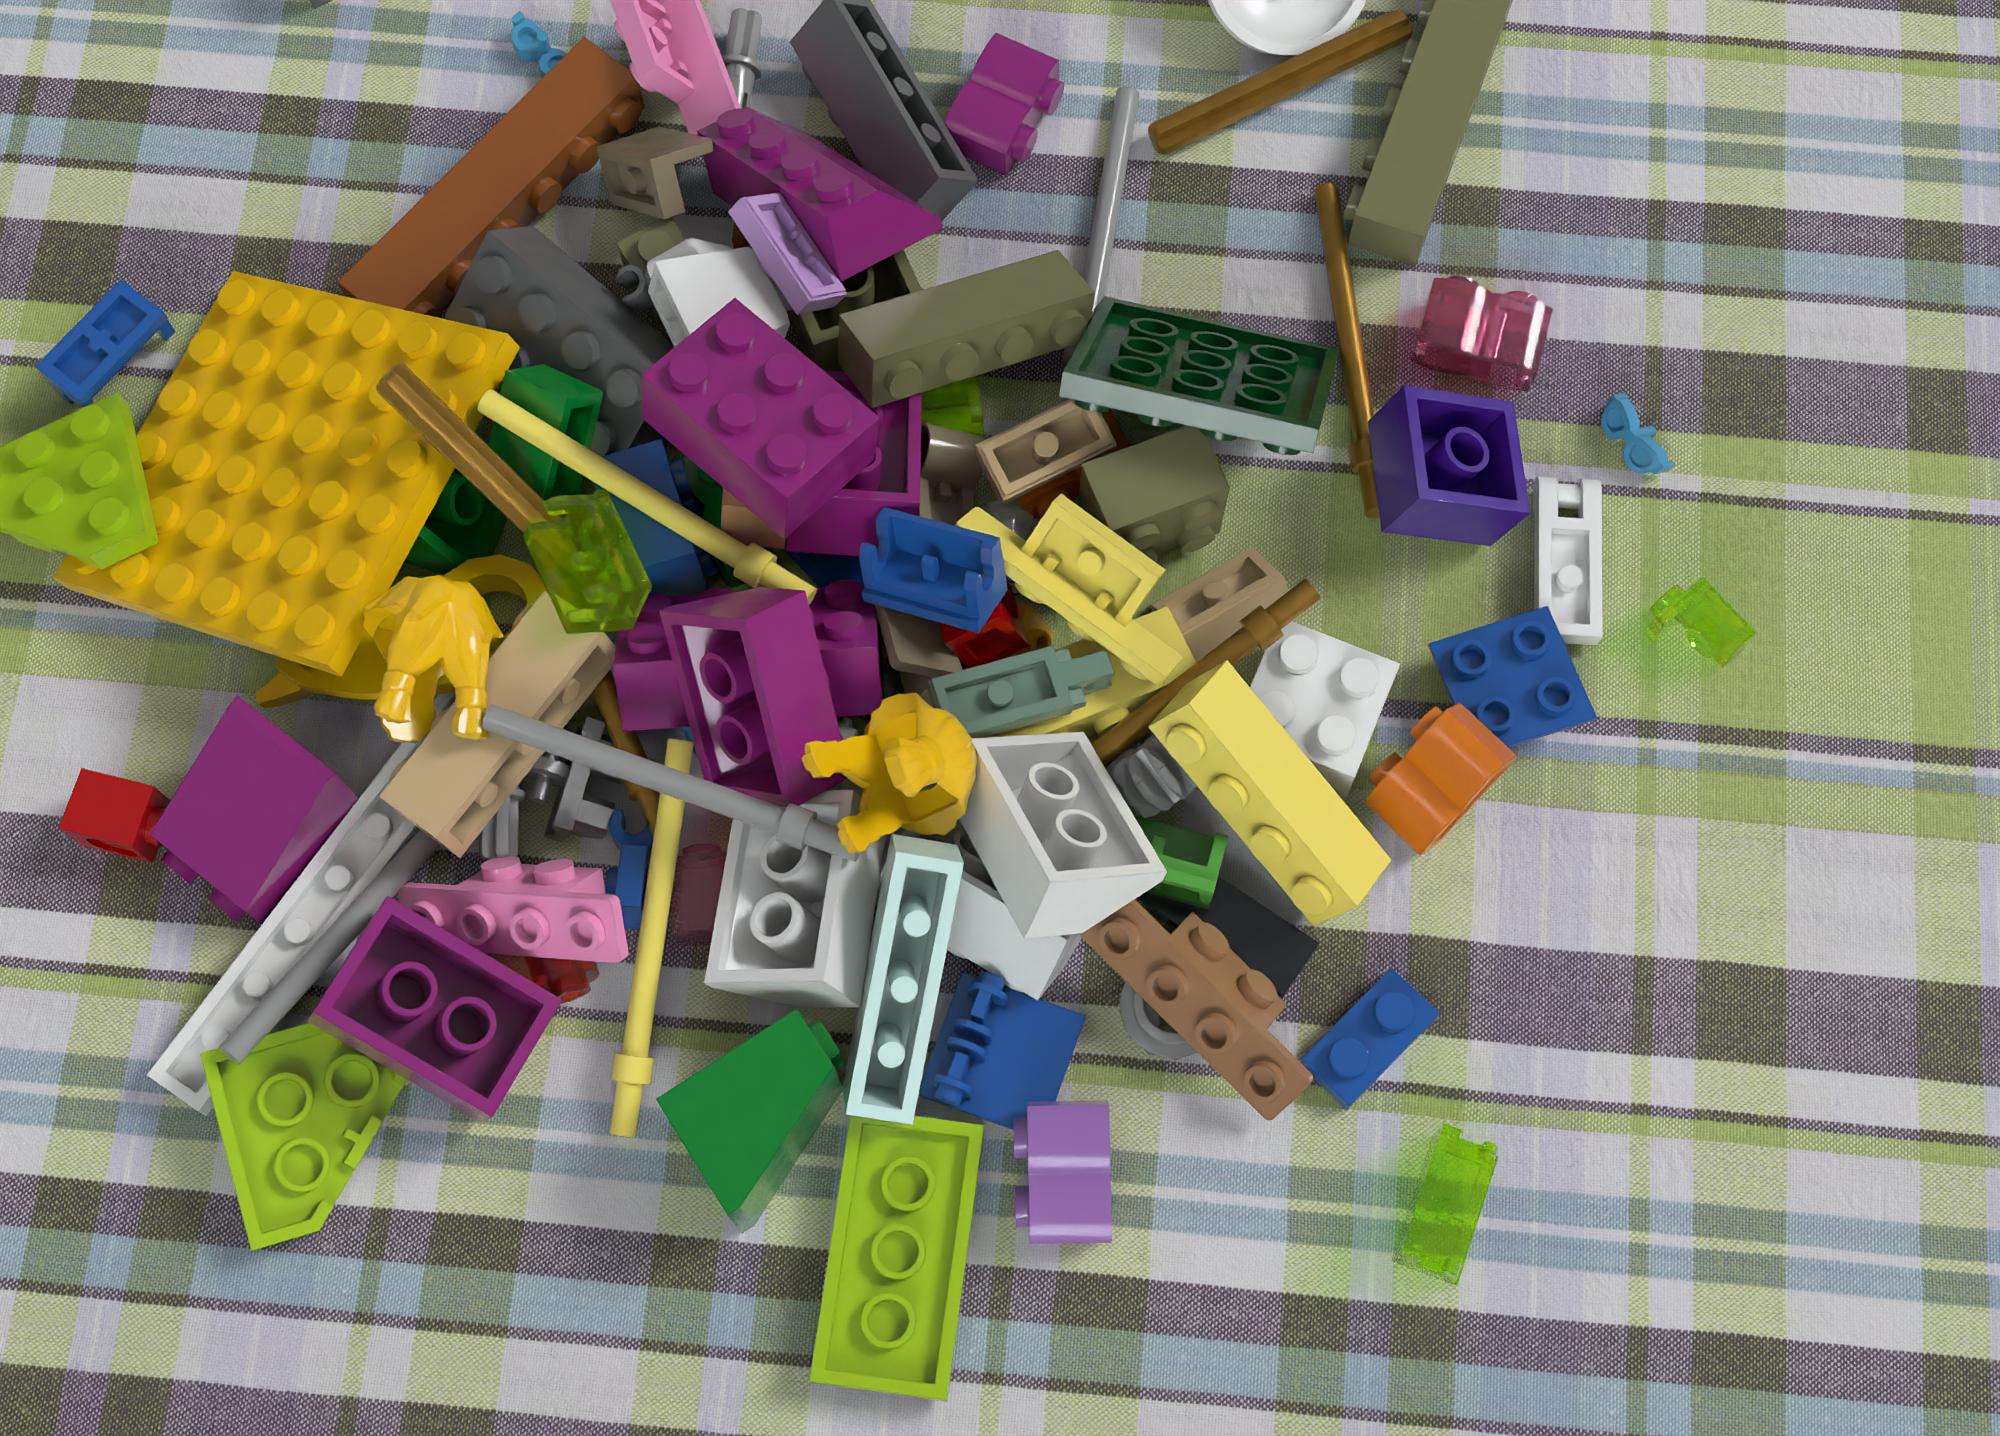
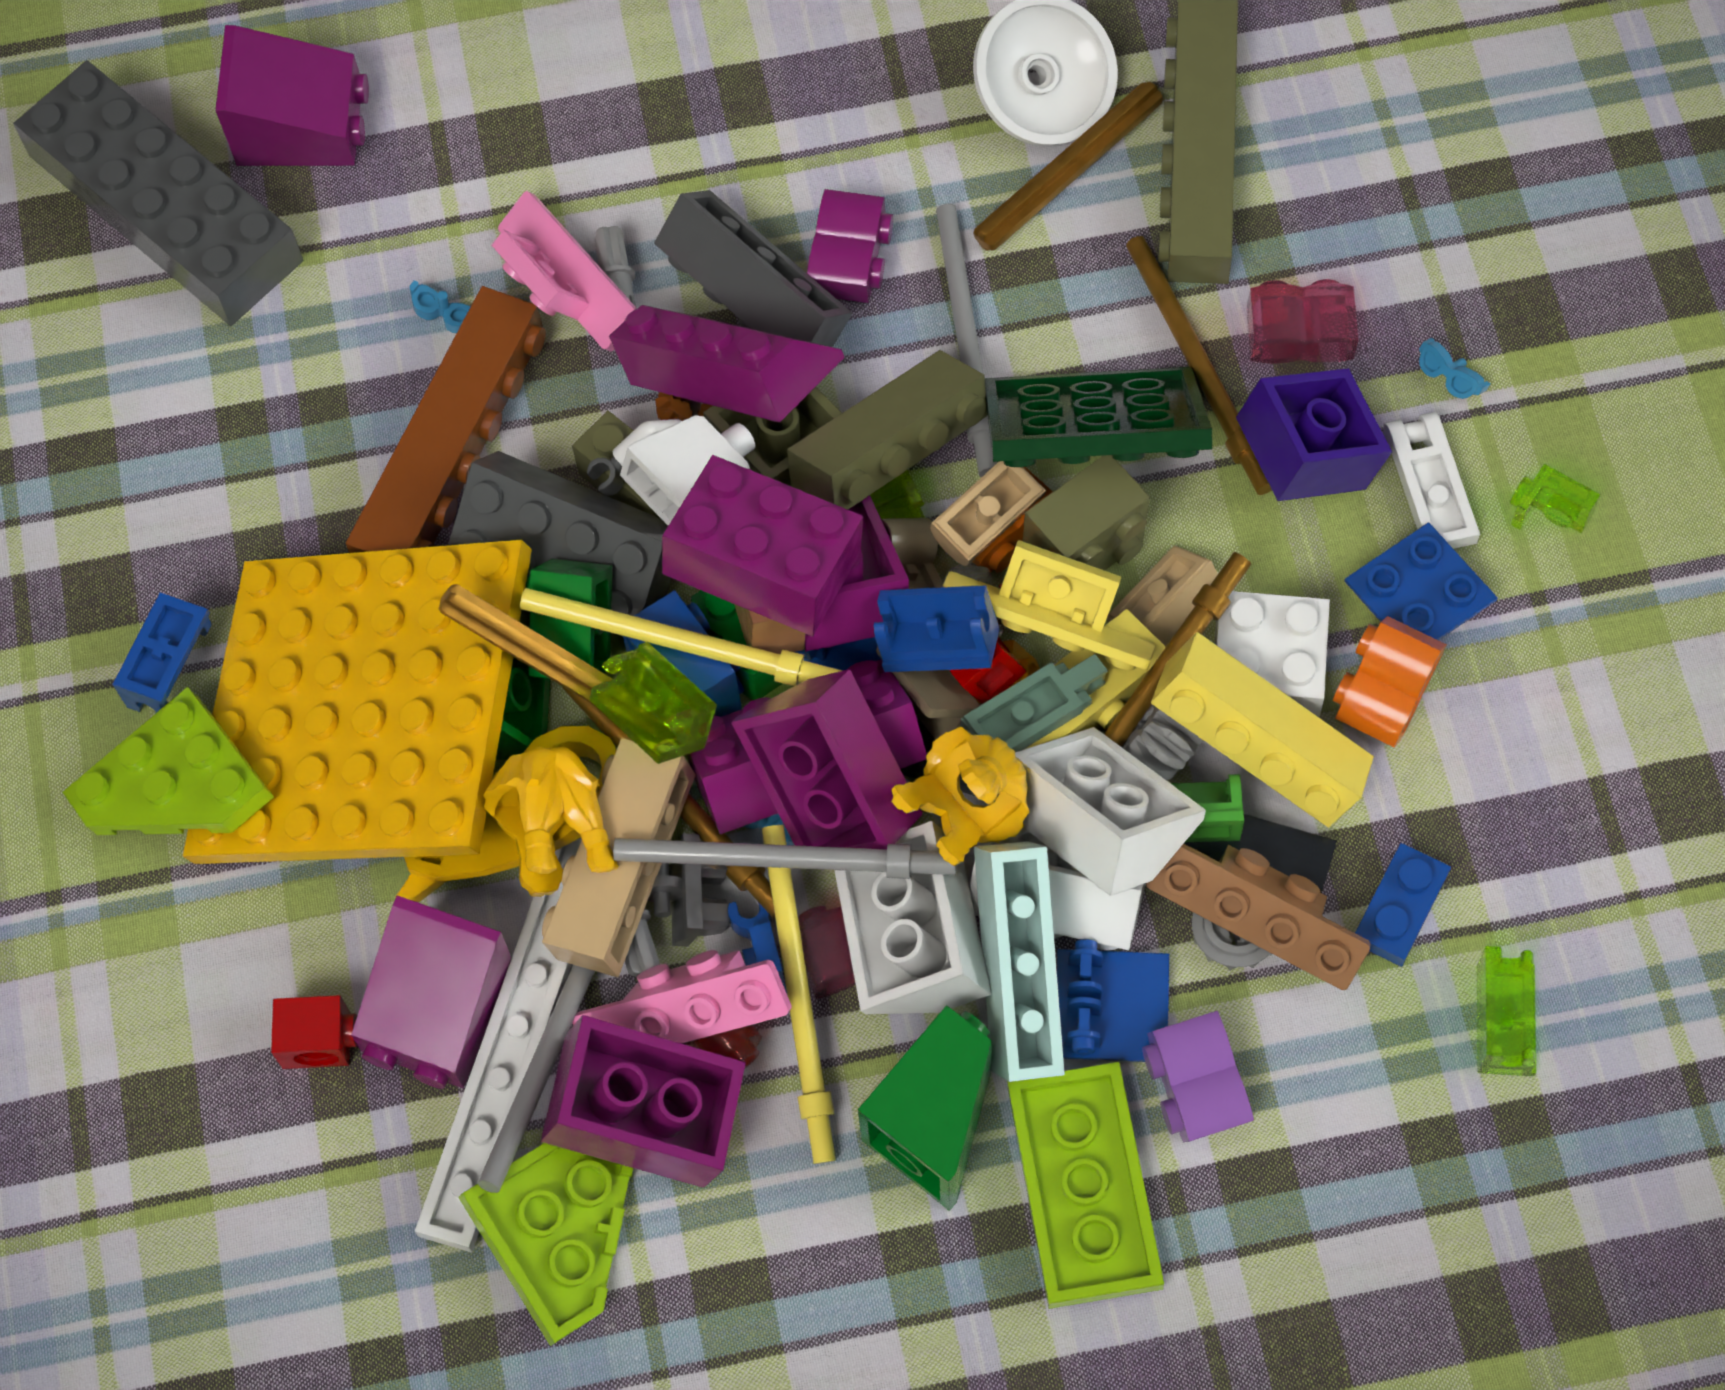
camera: 15 degrees left, 5 degrees down
(643, 172) = (575, 380): dark tan panel -> none
(787, 252) = (730, 410): lavender plate -> none

